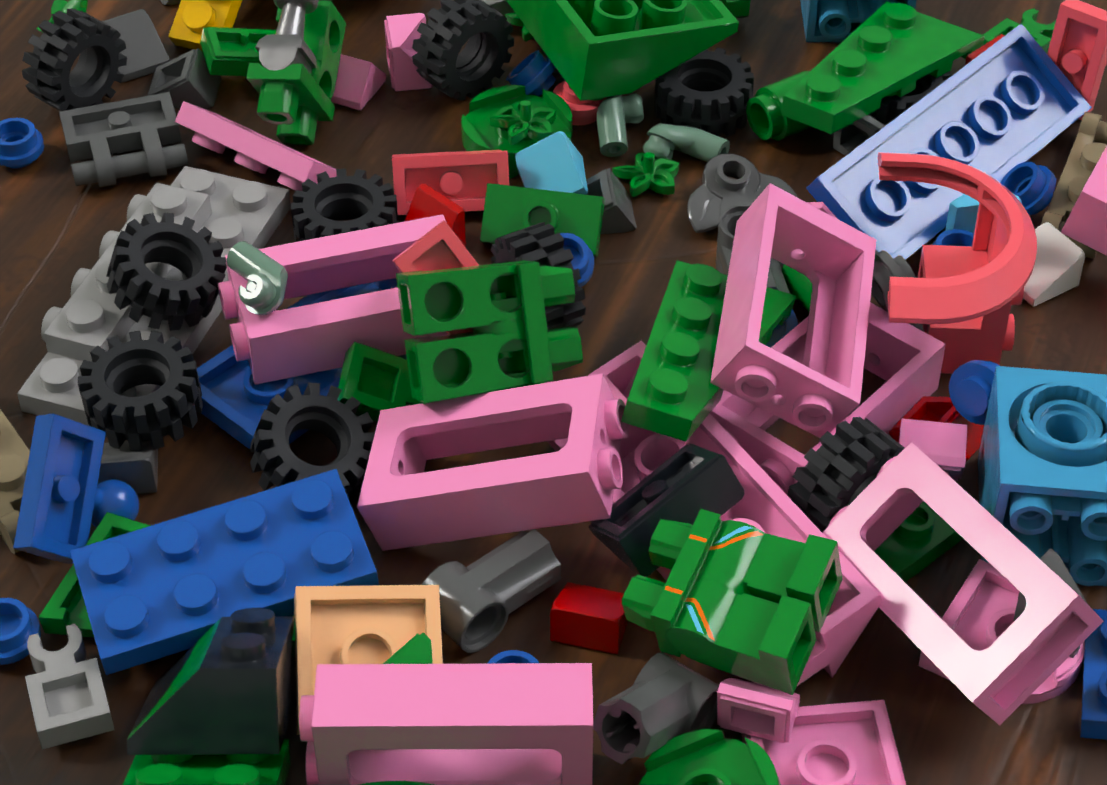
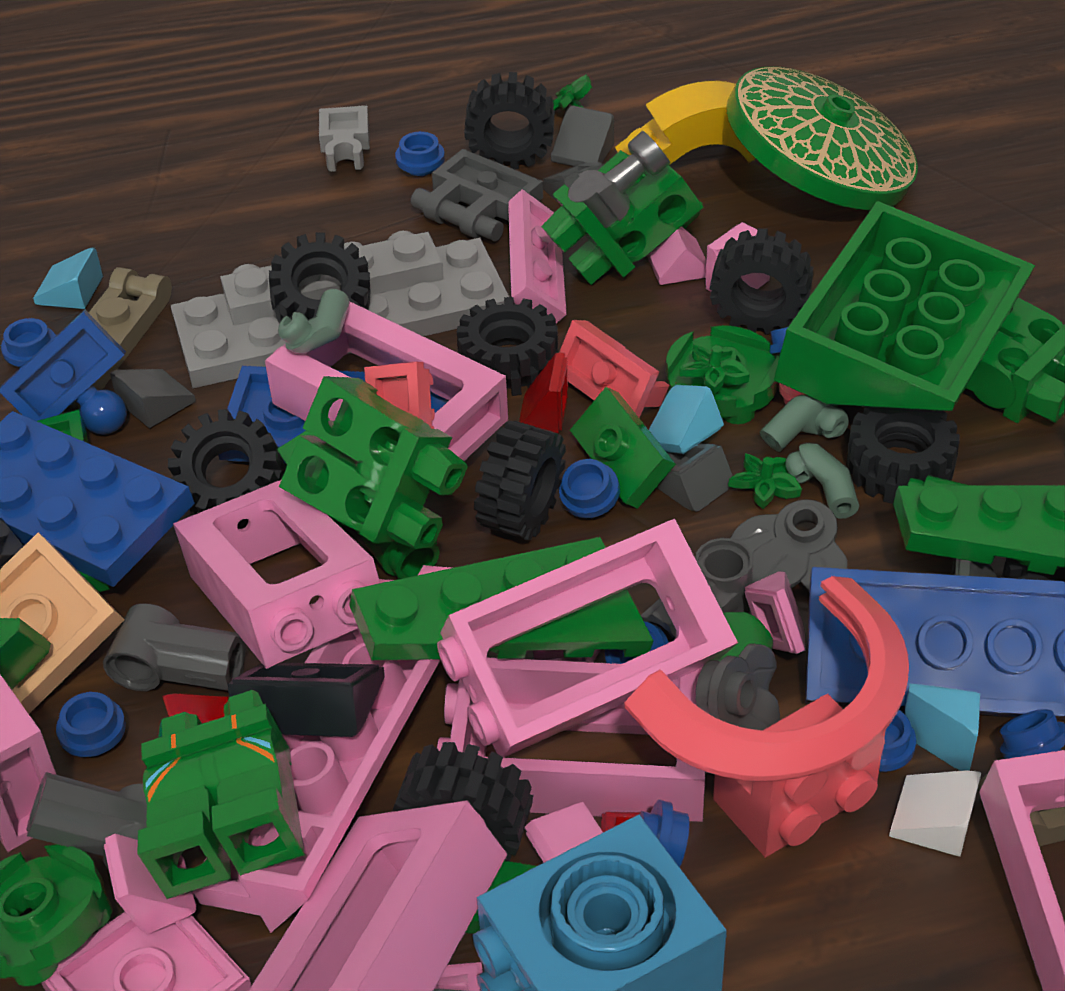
camera: 55 degrees right, 0 degrees up
(134, 365) = (198, 371): black tyre -> none

